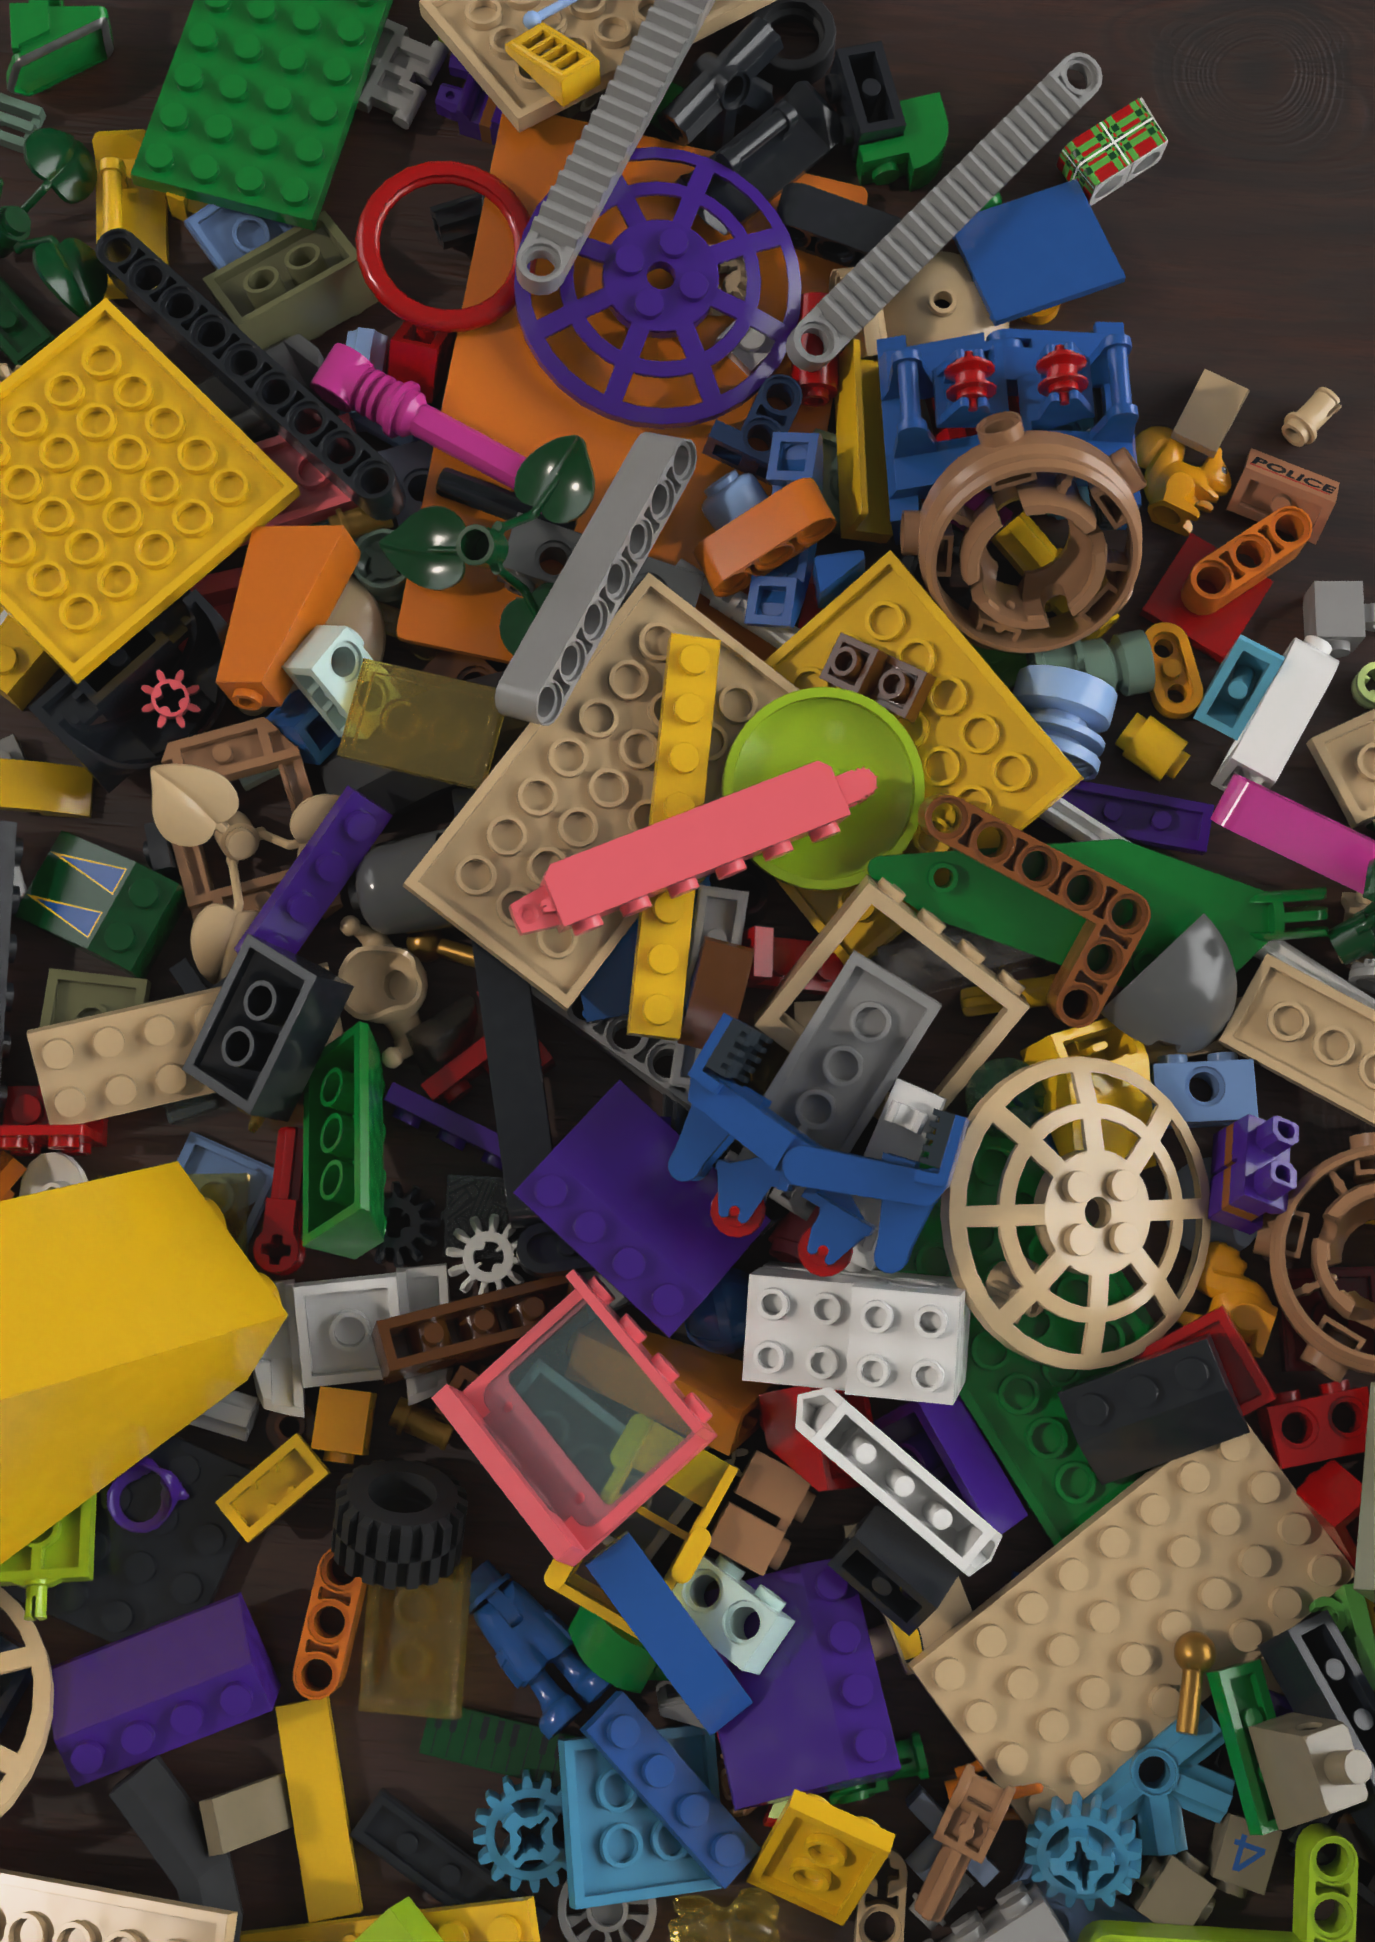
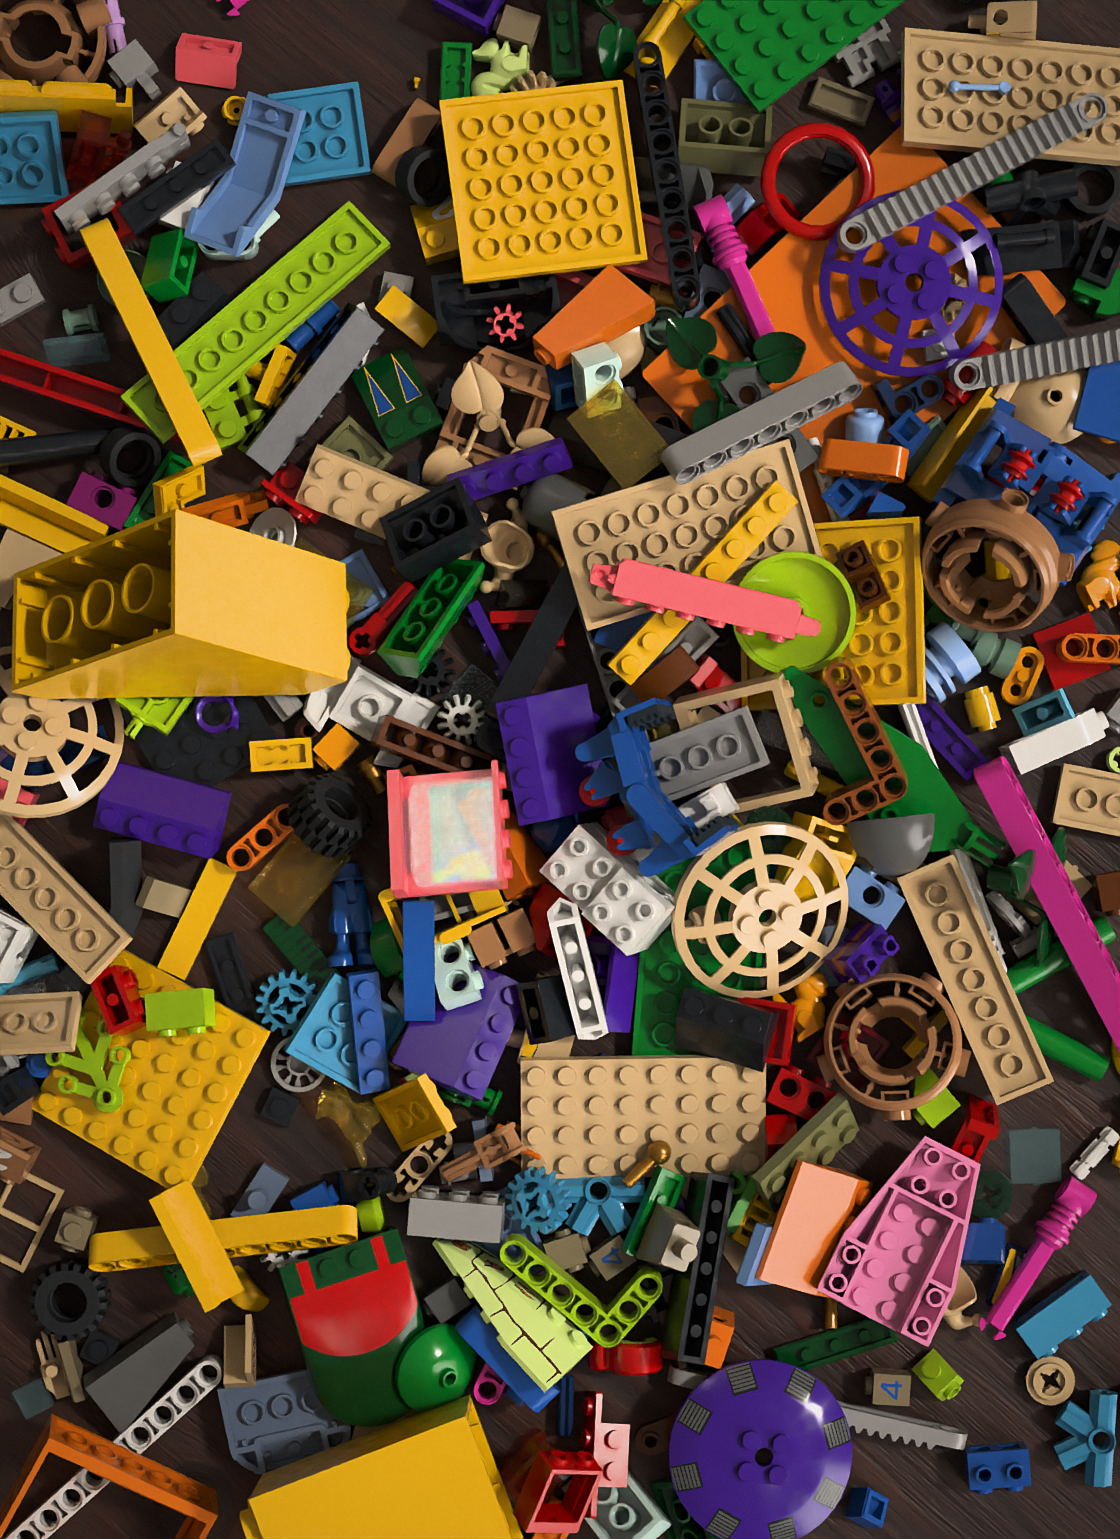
camera: 35 degrees right, 10 degrees up
(395, 151) = (841, 102): none -> dark tan tile
(562, 85) = (943, 142): yellow slope -> none

